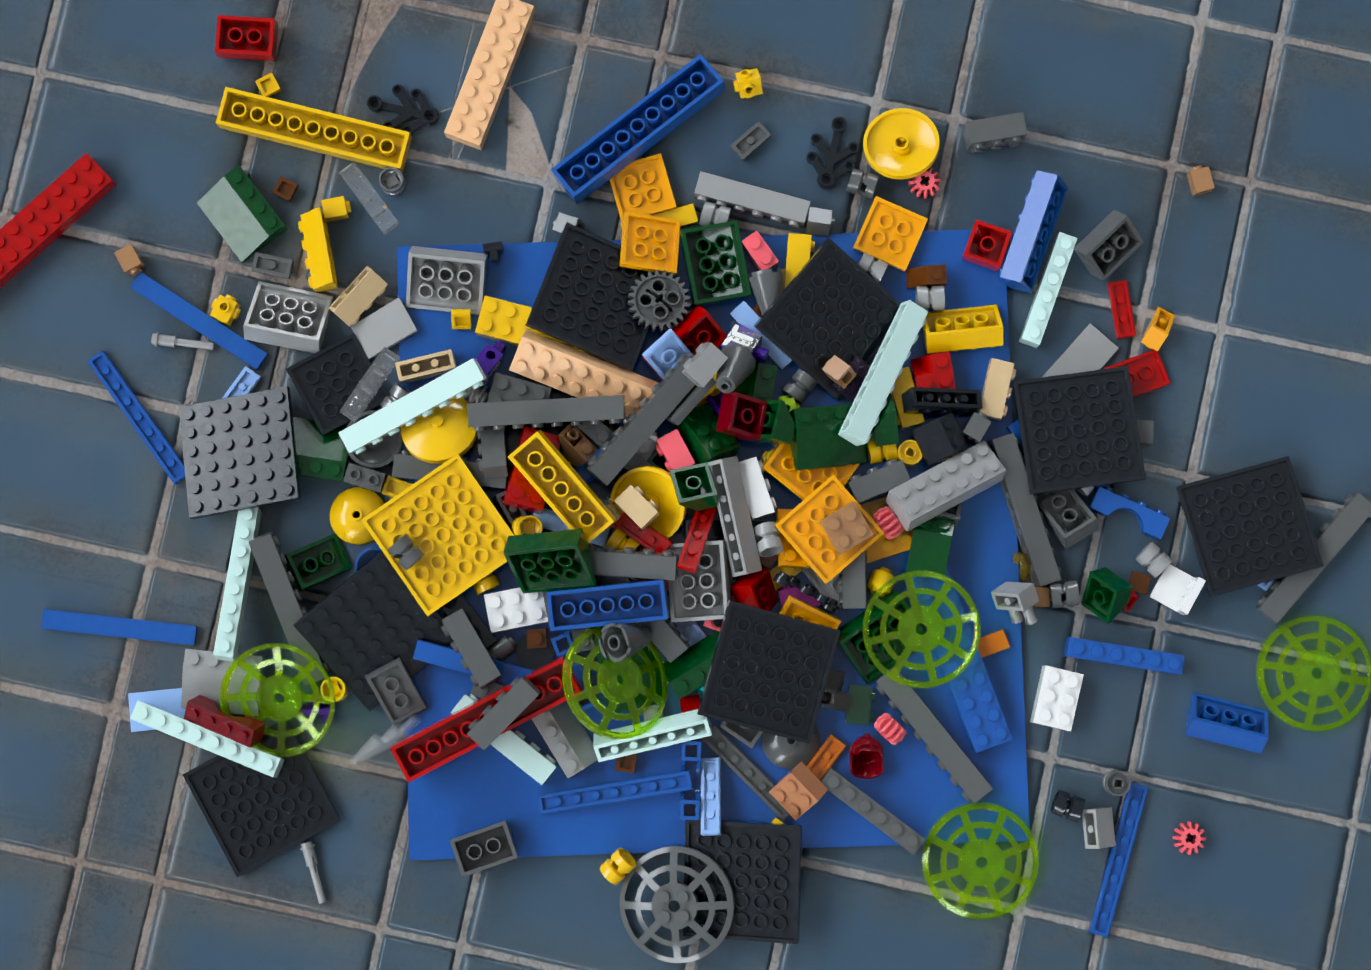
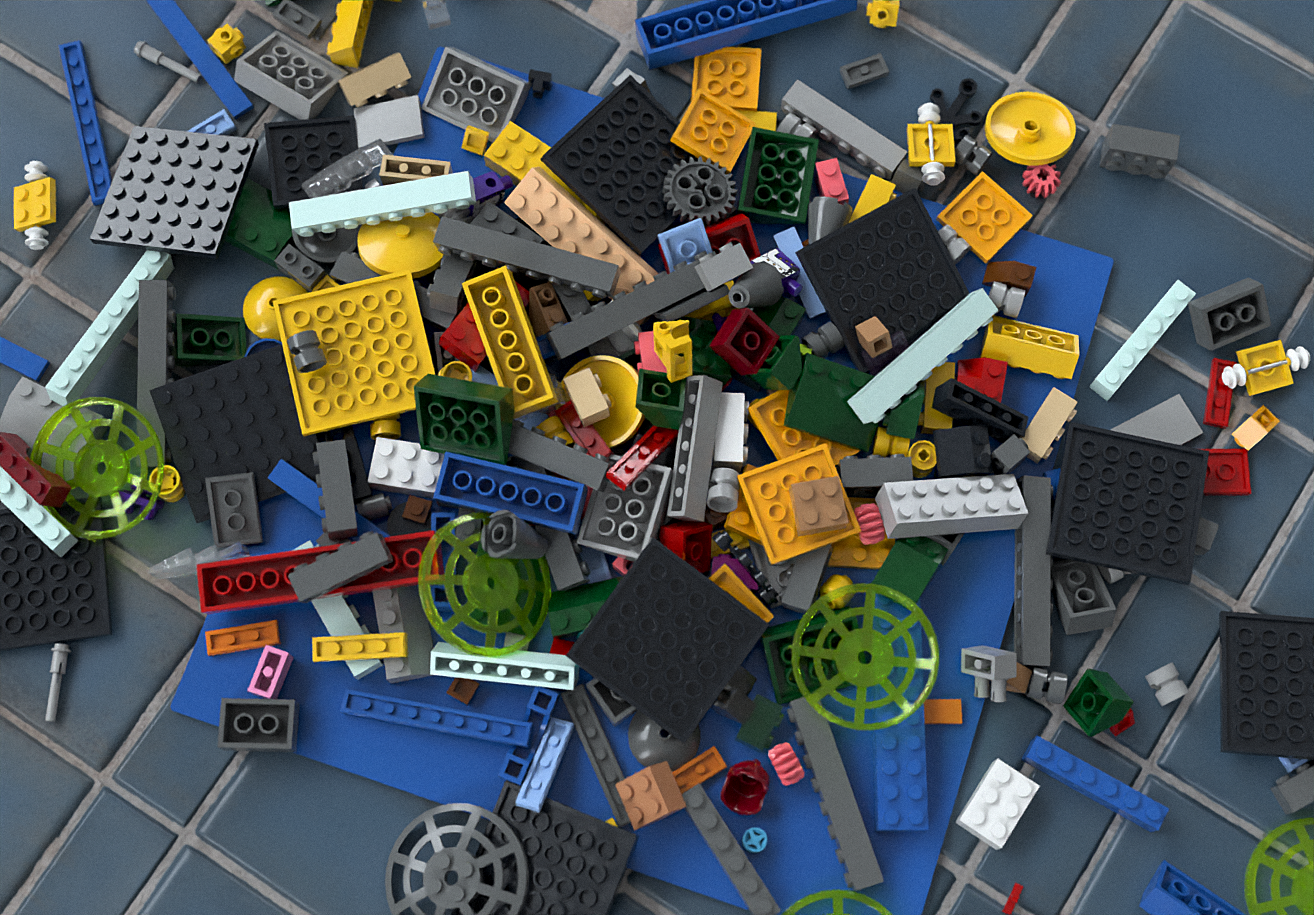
camera: 20 degrees right, 10 degrees down
(129, 503) = (35, 205): none -> yellow plate
(442, 785) = (242, 638): none -> orange tile
(477, 806) = (270, 673): none -> bright pink brick
(538, 762) = (360, 647): none -> yellow tile
(619, 865) = (404, 807): yellow wheel -> none
(690, 450) = (672, 339): none -> yellow tile
(827, 189) = (931, 144): none -> yellow plate
(886, 793) = (756, 835): none -> dark azure wheel
(986, 245) = (1089, 265): red slope -> none
(1024, 566) = (1011, 633): clear yellow arm -> none
(1033, 231) = (1148, 269): brick -> none
(1091, 762) = (1013, 898): none -> red piece
(1139, 582) = (1142, 706): reddish brown tile -> none
(1150, 277) = (1265, 367): none -> yellow plate
(1151, 522) = (1178, 640): blue arch -> none
(1177, 589) = (1183, 730): white bracket -> none

